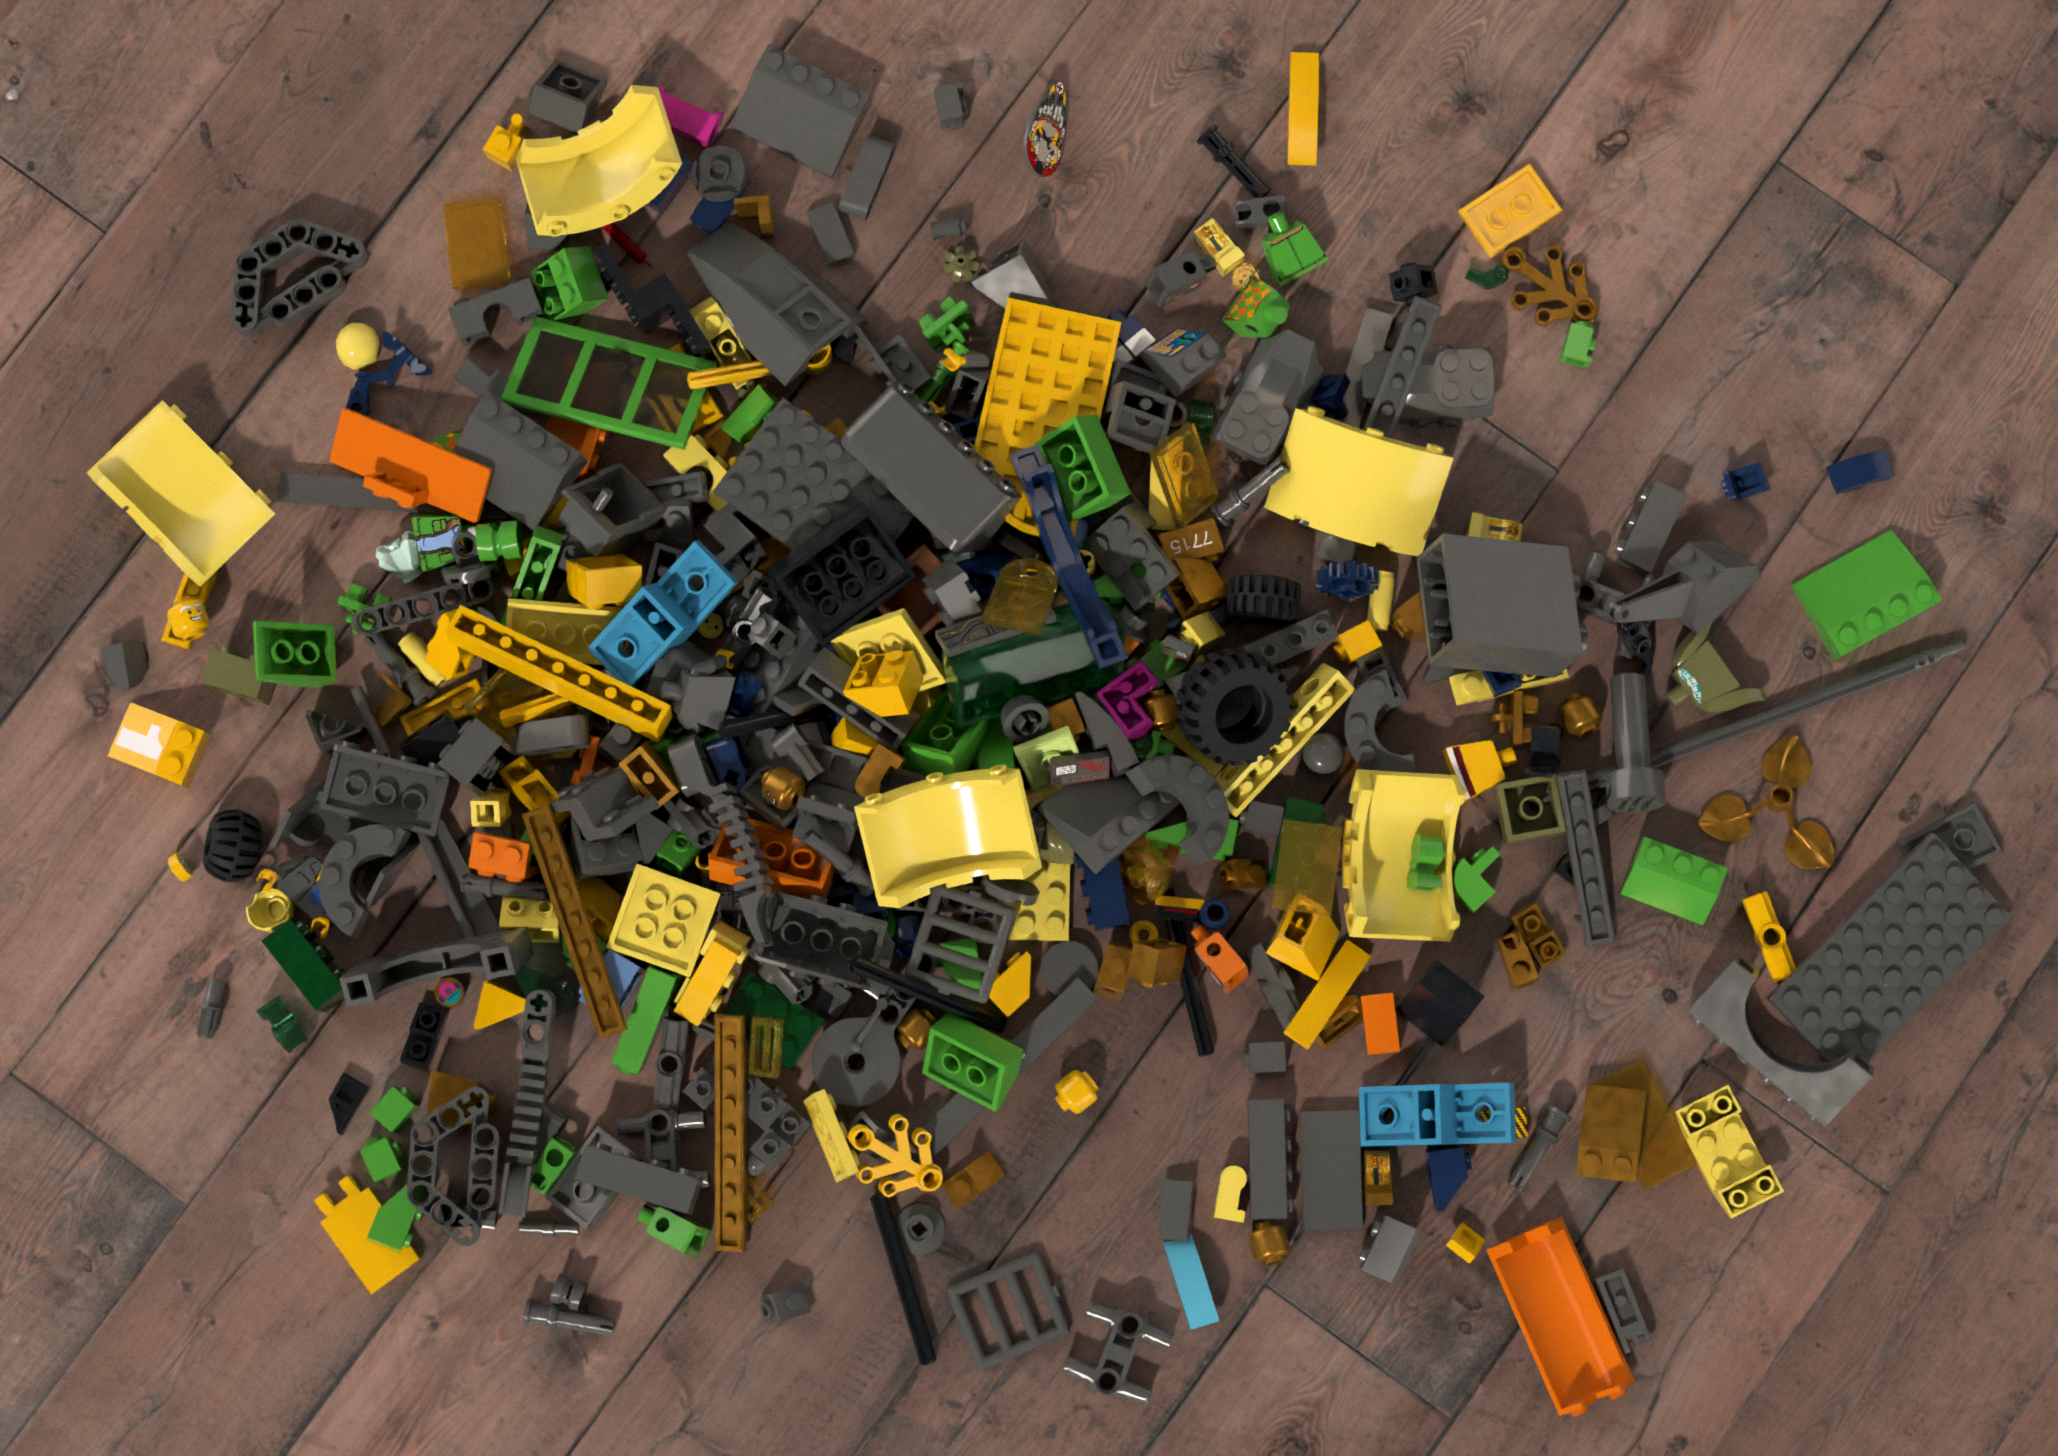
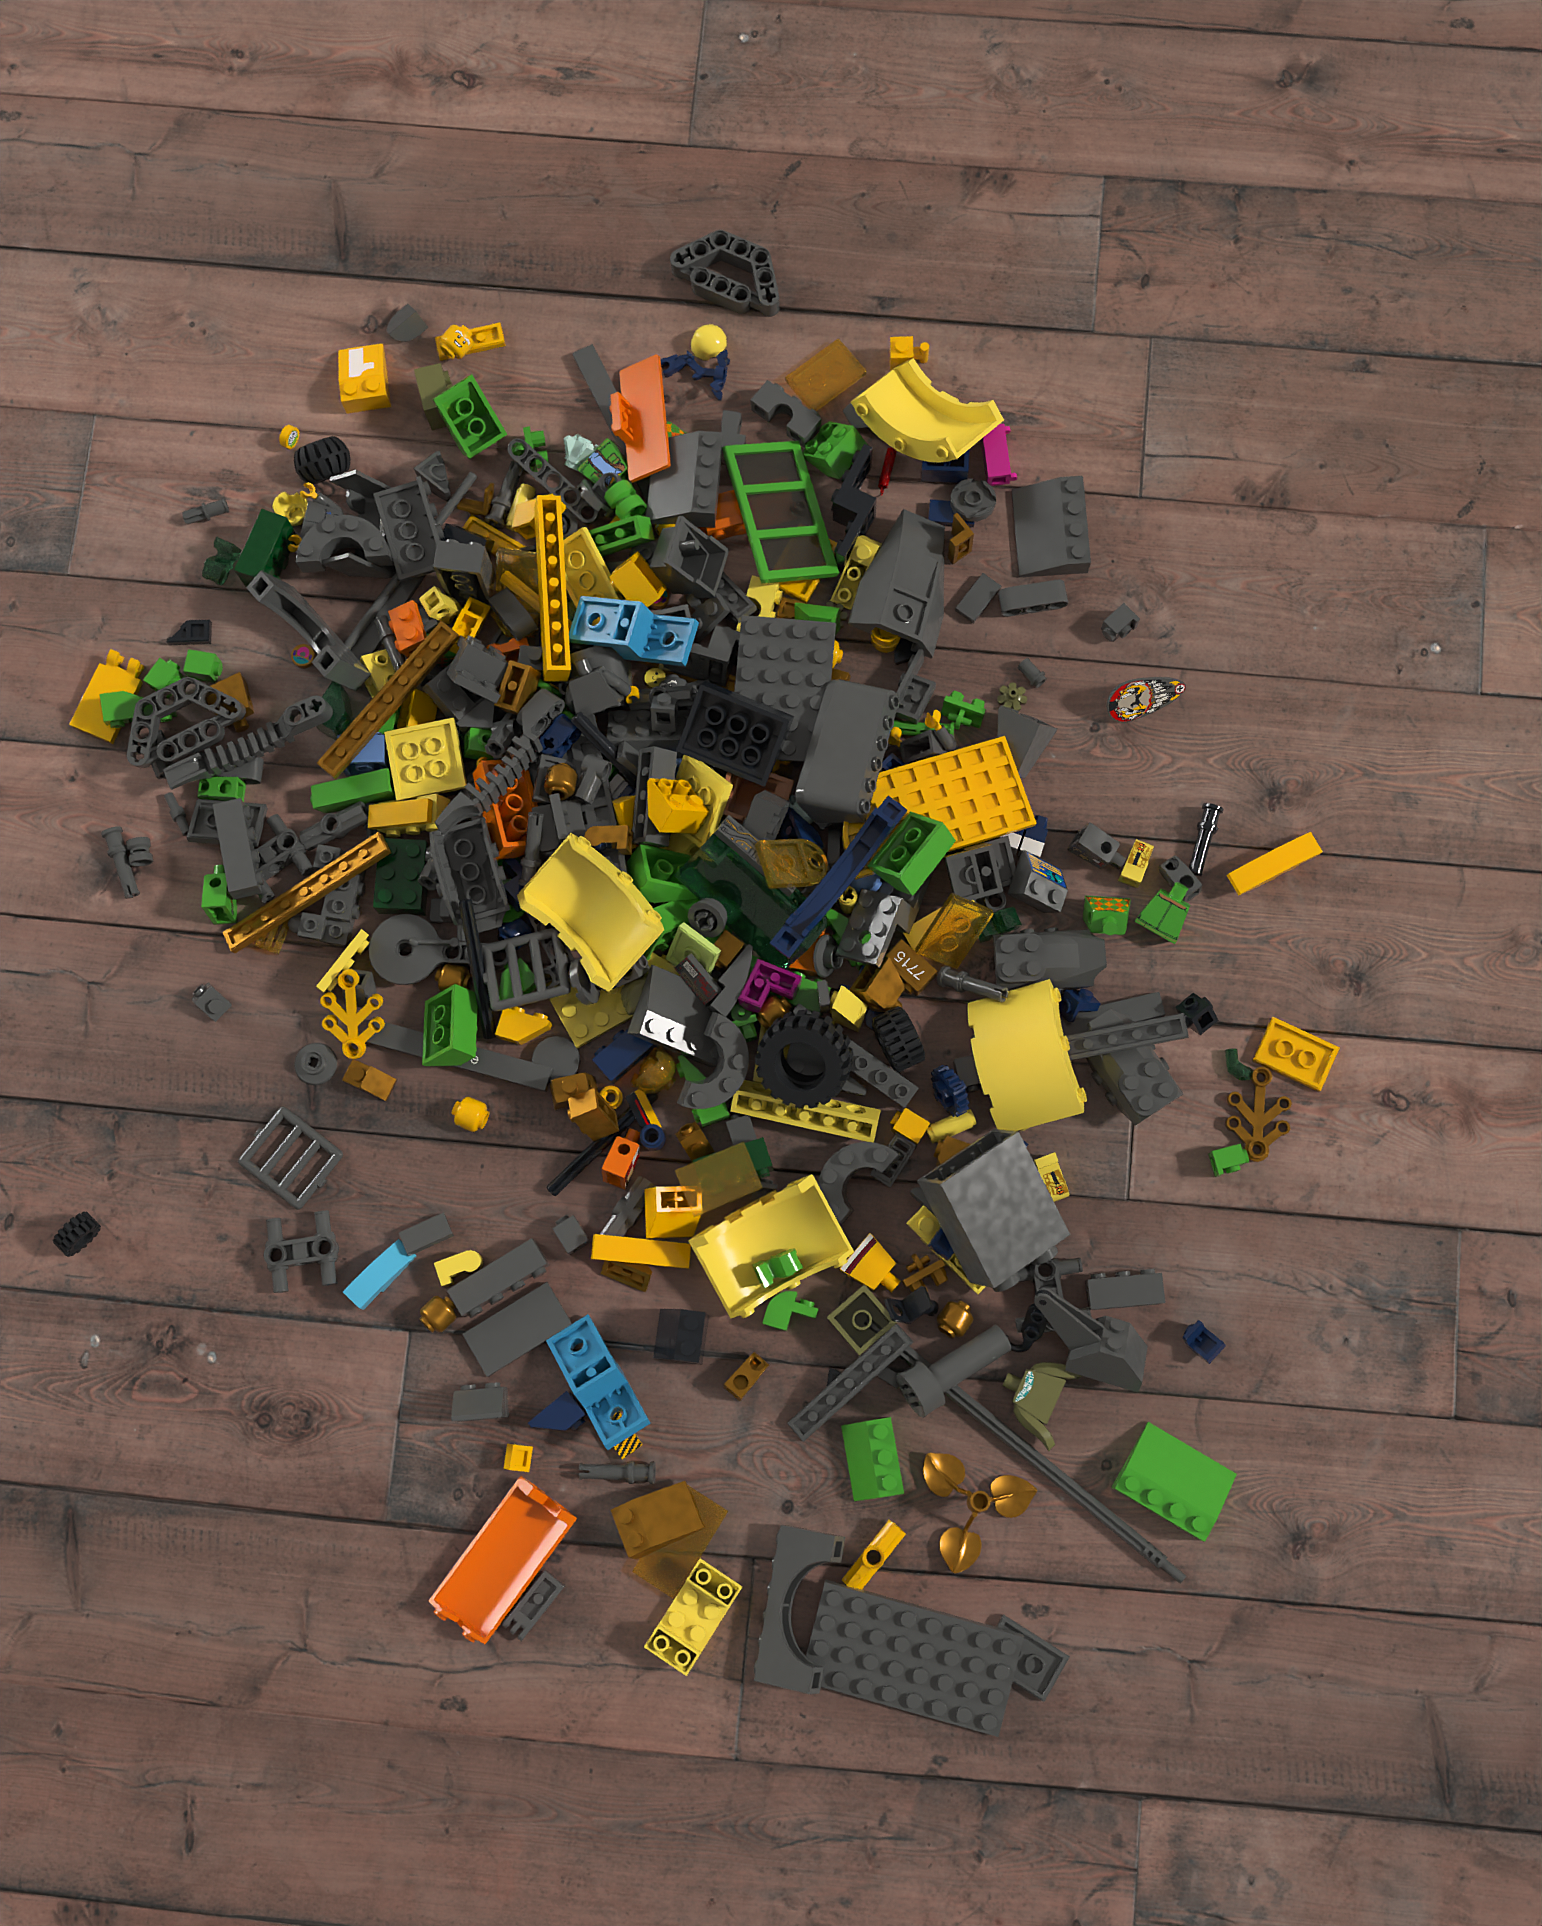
camera: 65 degrees right, 5 degrees down
(181, 492) = (540, 288): light yellow panel -> none
(423, 1037) = (263, 658): black slope -> none
(497, 1004) = (308, 685): yellow piece -> none
(566, 96) = (963, 371): dark grey slope -> none
(727, 374) = (832, 582): yellow axle -> none
(743, 693) = (614, 718): dark blue bracket -> none
(768, 1024) = (378, 883): clear yellow tile -> none
(903, 1279) = (272, 1072): black axle -> none
(1242, 274) = (1128, 891): clear yellow tile -> none
(1321, 754) = (813, 1147): dark grey helmet -> none
(1377, 1178) = (529, 1366): pearl gold leg -> none
(1380, 1024) = (642, 1303): orange hinge -> none
(1538, 935) = (774, 1382): pearl gold slope -> none
(1859, 471) = (1265, 1424): dark blue slope -> none

